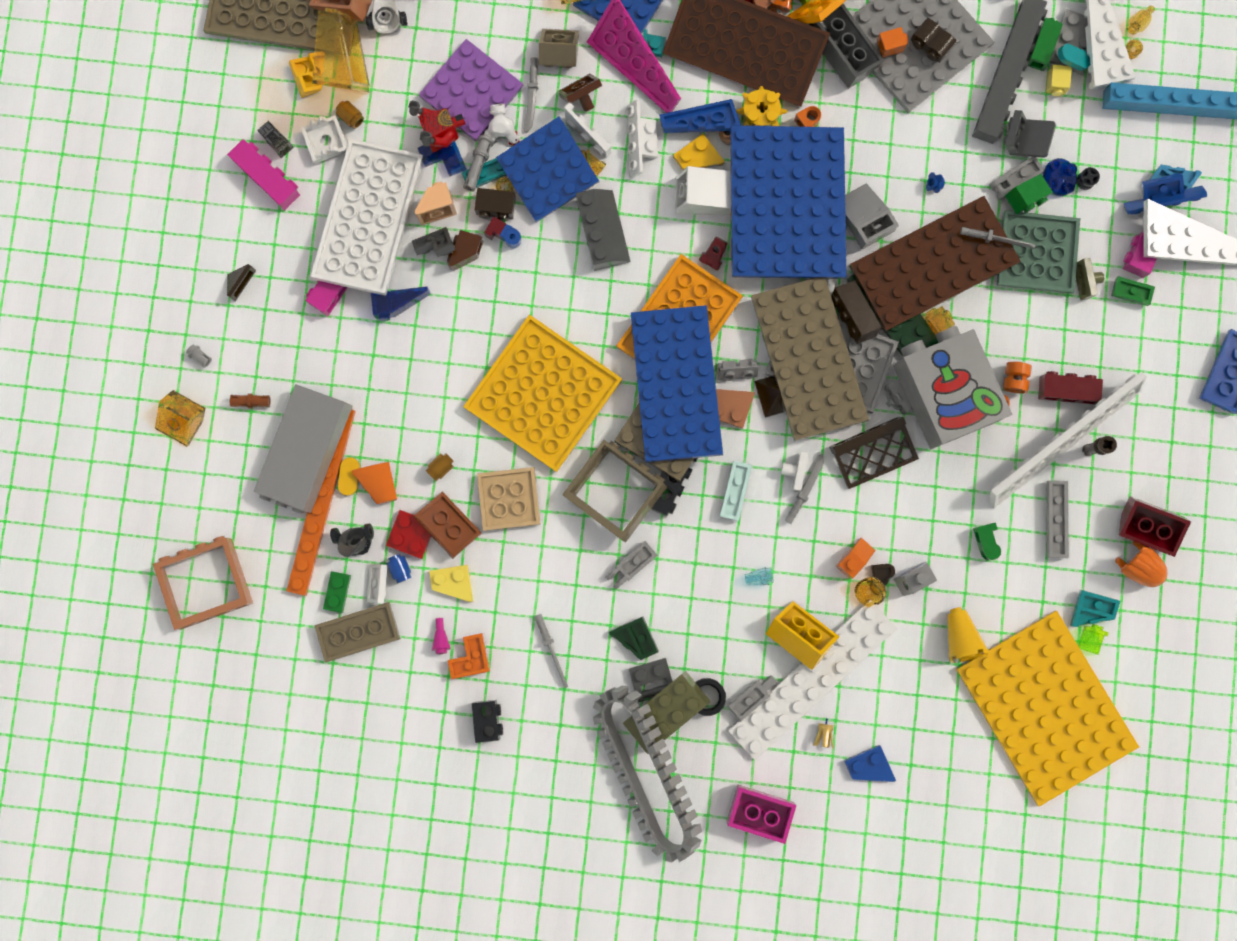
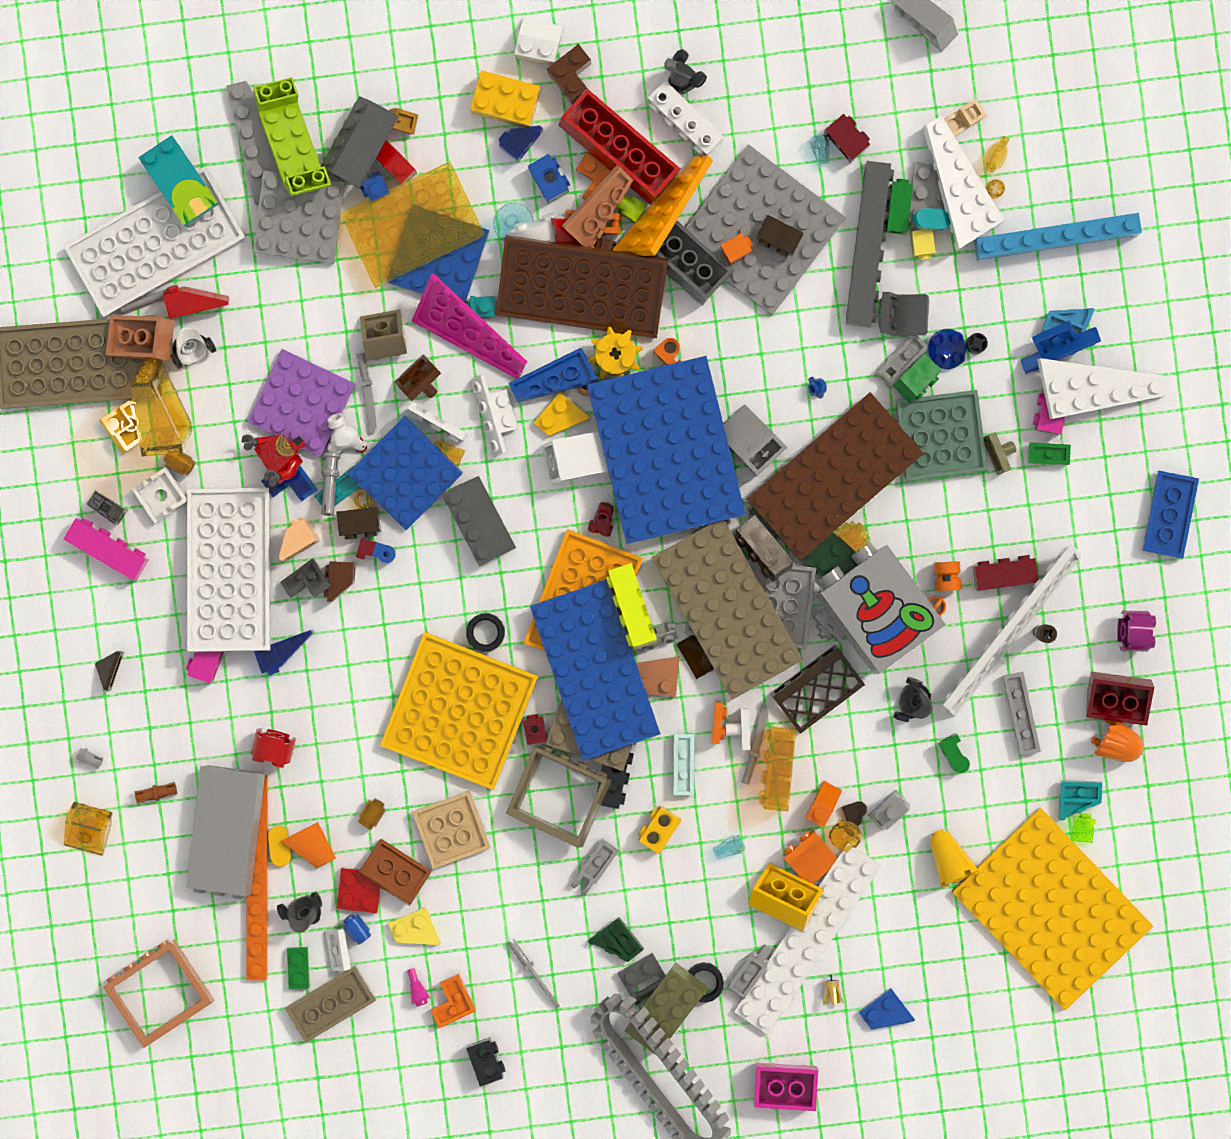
camera: 20 degrees left, 5 degrees up
(366, 383) = (272, 747): none -> red brick
(584, 314) = (470, 632): none -> black tyre
(607, 433) = (538, 737): none -> dark red brick
(702, 547) = (663, 832): none -> yellow brick
(724, 334) = (632, 605): none -> neon yellow wedge
(775, 468) = (719, 713): none -> orange plate
(823, 514) = (778, 768): none -> clear yellow brick
(832, 604) = (810, 857): none -> orange bracket
(962, 483) = (914, 701): none -> dark grey cap
(989, 237) = (883, 437): light grey sword -> none
(1182, 467) = (1136, 631): none -> magenta brick

